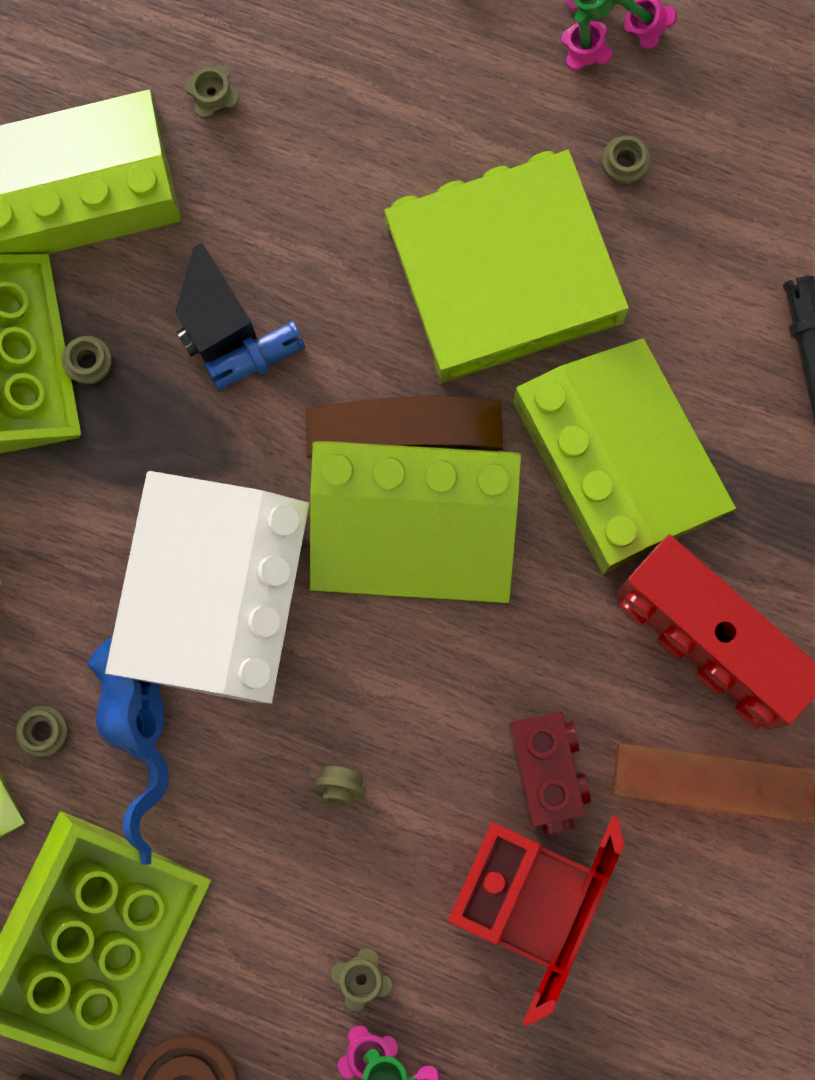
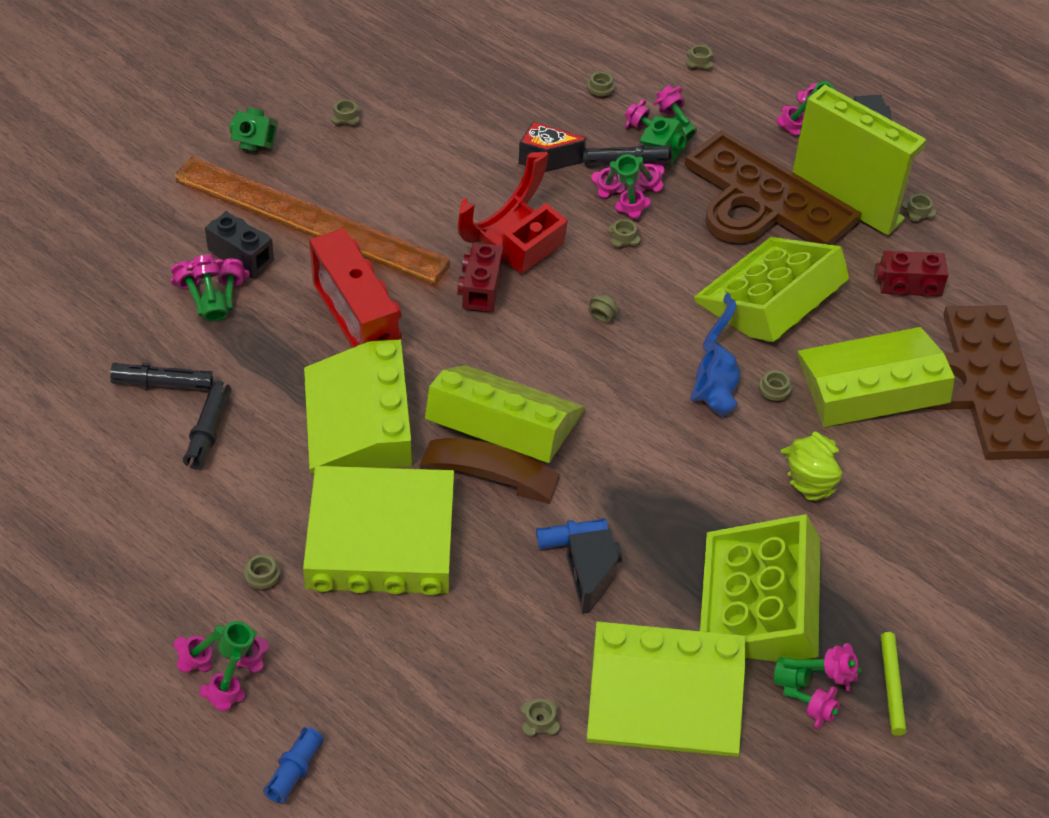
camera: 170 degrees left, 30 degrees down
(77, 350) = (693, 563): olive plate -> none
(208, 587) = (645, 403): white slope -> none

